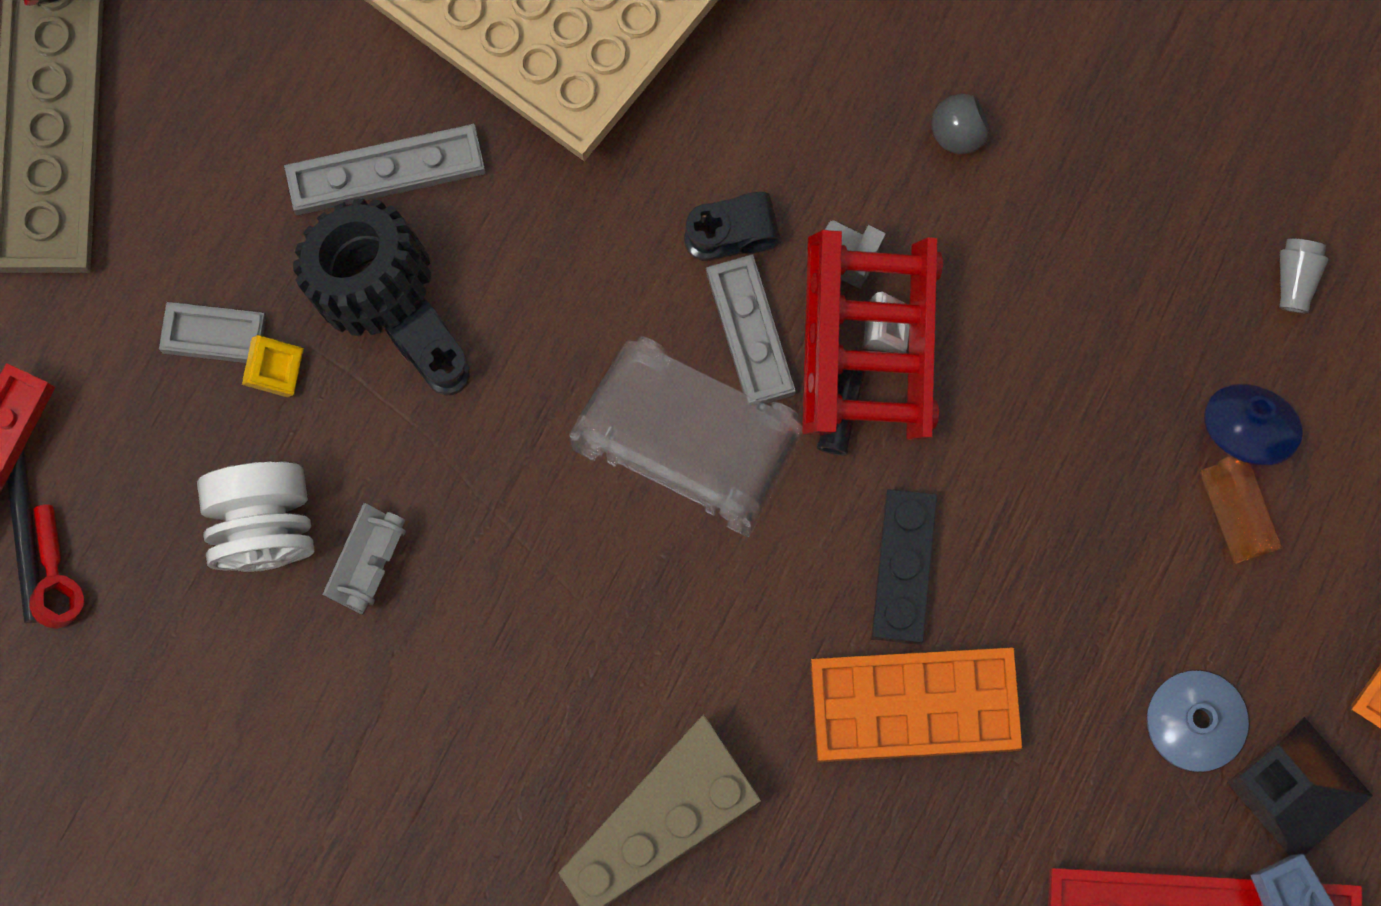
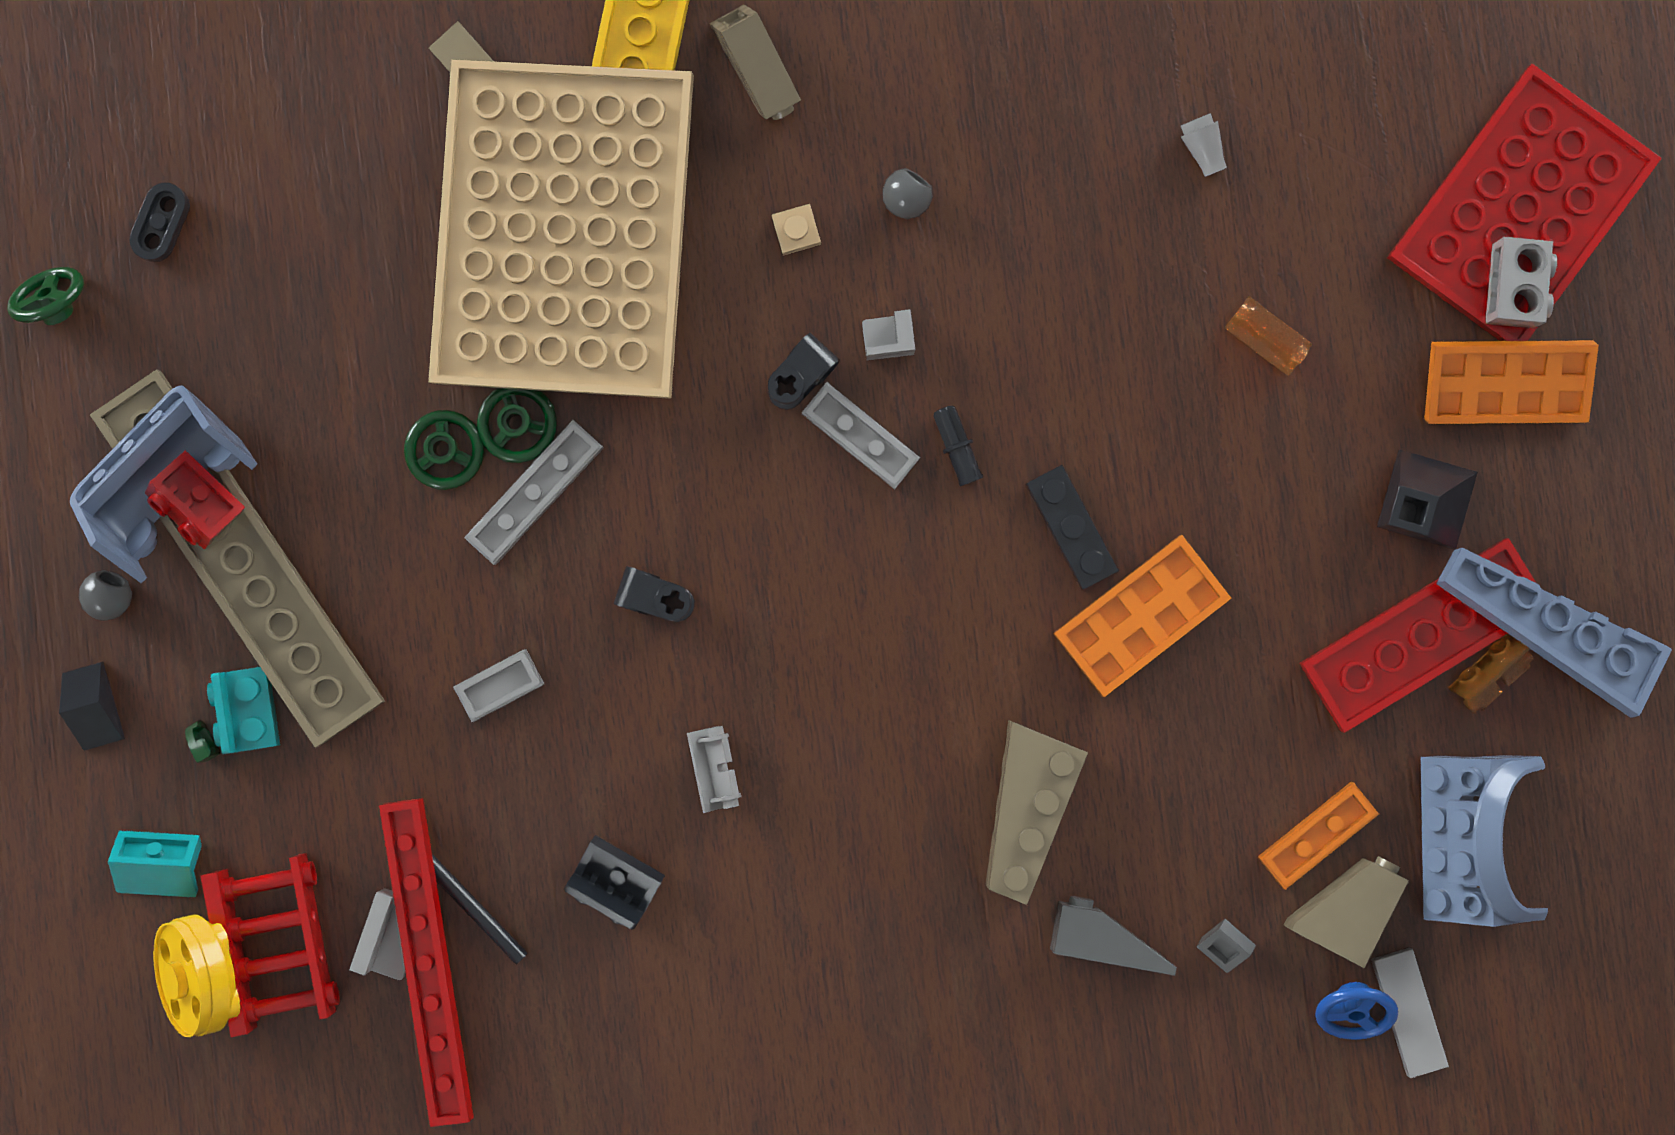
camera: 35 degrees left, 10 degrees up
(50, 559) = (503, 911): red piece -> none
(182, 605) = (614, 883): none -> black bracket
(254, 507) = (623, 793): white wheel -> none
(272, 366) = (557, 681): yellow tile -> none
(322, 53) = (419, 466): none -> dark green piece
(341, 245) = (544, 573): black tyre -> none
(410, 75) = (496, 444): none -> dark green piece
(688, 433) = (870, 537): clear windscreen -> none
(826, 89) = (796, 229): none -> tan plate
(827, 358) = (909, 390): red fence -> none
(886, 336) = (949, 368): white slope -> none
(1173, 728) = (1311, 500): sand blue dish -> none
(1253, 424) = (1240, 284): clear blue dish -> none

